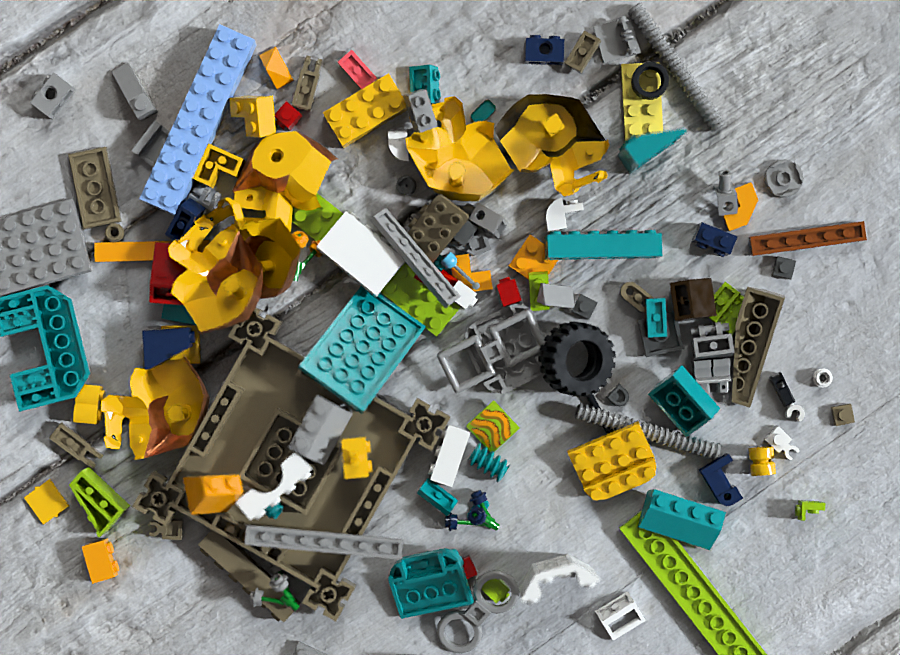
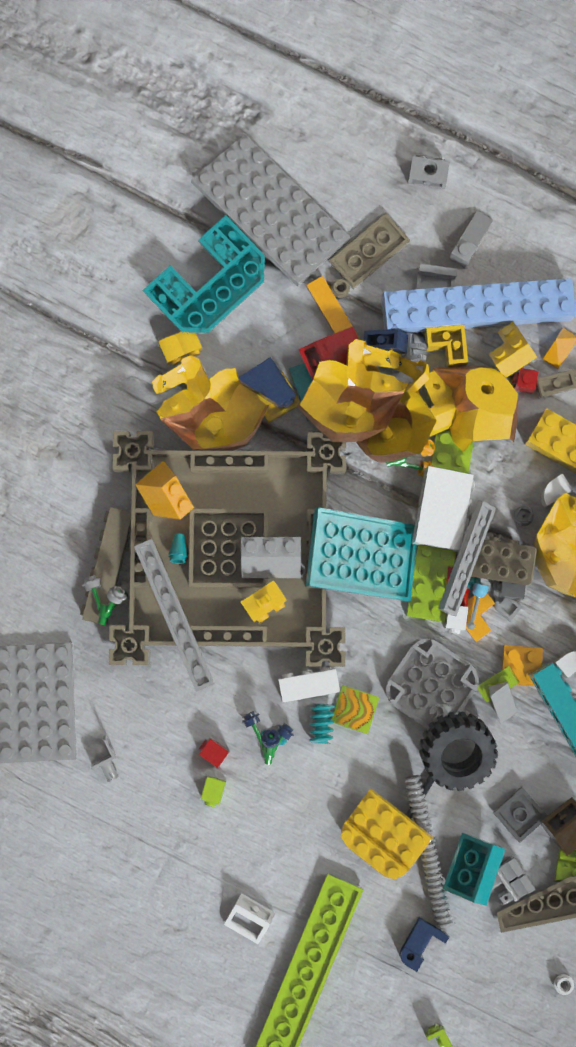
camera: 60 degrees right, 5 degrees down
(46, 501) = (76, 357): yellow piece -> none
(74, 444) = (138, 353): dark tan hinge -> none
(98, 499) = (102, 400): lime wedge -> none
(100, 560) = (50, 430): light orange brick -> none
(172, 531) = (108, 477): dark tan plate -> none
(255, 502) = (175, 535): white arch -> none
(429, 583) = (186, 729): teal plate -> none
(437, 496) = (266, 694): teal plate -> none
(478, 611) = (184, 787): light grey bar -> none
(491, 351) = (421, 671): light grey bar -> none
(492, 222) = (534, 610): light grey torso -> none
(508, 291) = (481, 657): red brick -> none
(550, 568) = (233, 821): white slope -> none
(584, 306) = (506, 732): dark grey plate -> none
(618, 396) = (444, 807): dark grey tile -> none
(636, 298) = (543, 775): dark tan plate -> none
(656, 317) = (534, 802): teal plate -> none
(681, 519) = (367, 925): teal slope -> none
(711, 346) = (535, 866): light grey brick -> none
(762, 461) = (459, 970): yellow wheel -> none
(780, 441) = (485, 976): white plate -> none
(786, 397) = (528, 961): black piece -> none
(842, 414) = (541, 1022): dark tan plate -> none

